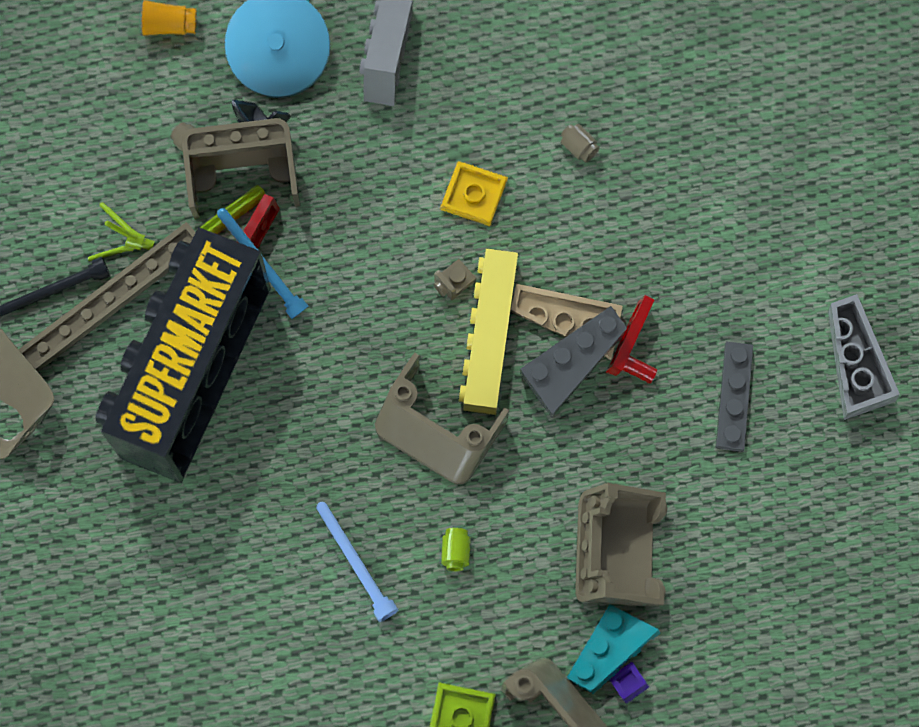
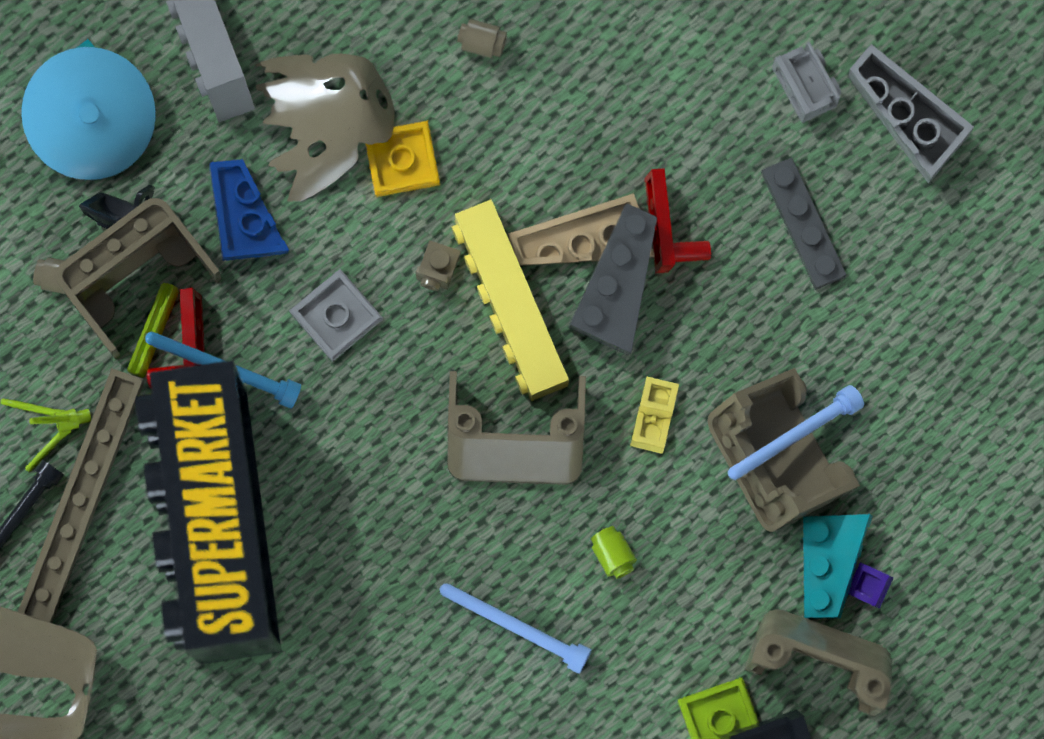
camera: 30 degrees left, 5 degrees up
(339, 171) = (241, 216): none -> blue wing
(363, 273) = (336, 315): none -> light grey tile
(439, 134) = (325, 115): none -> dark tan piece
(545, 469) = (654, 415): none -> light yellow slope
(691, 540) = (846, 402): none -> light blue piece
(795, 298) = (807, 82): none -> light grey hinge

